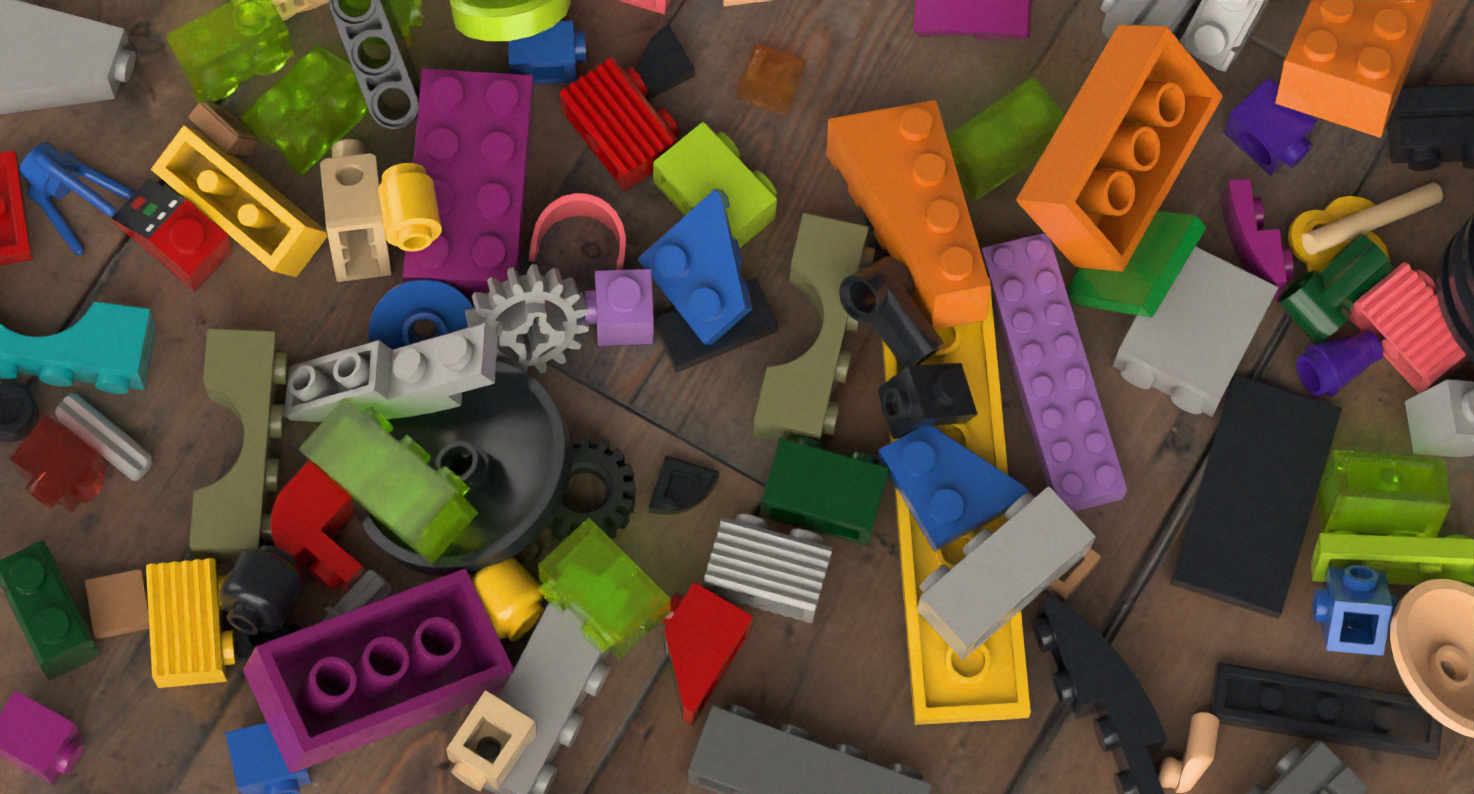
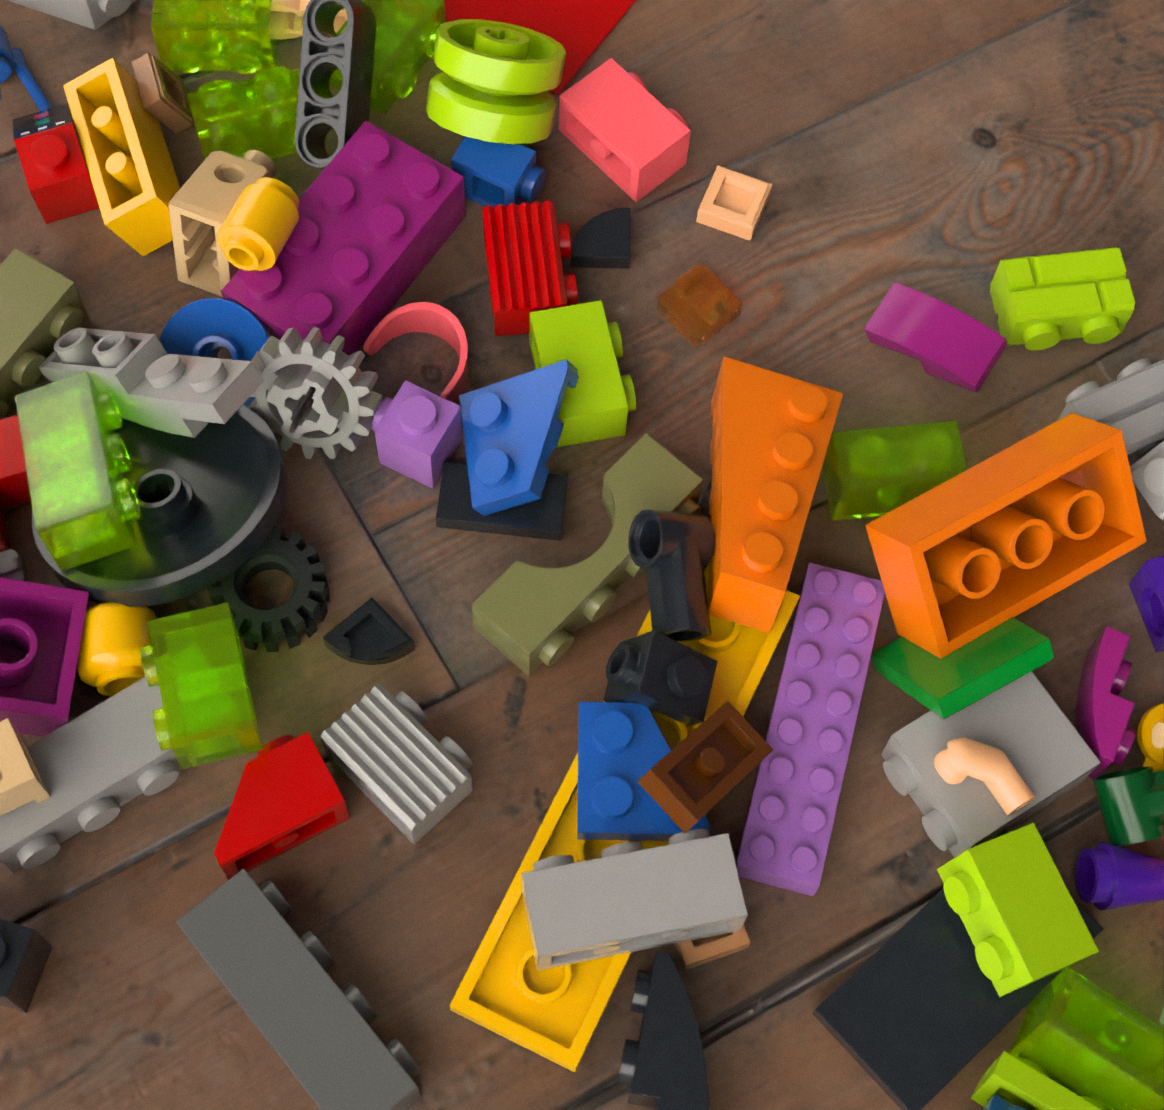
camera: 30 degrees right, 5 degrees down
(824, 490) = (505, 715): dark green brick -> none
(1002, 446) = (705, 766): none -> reddish brown plate
(1201, 334) = (986, 764): none -> light nougat arm
(1276, 429) = (1016, 909): none -> lime brick

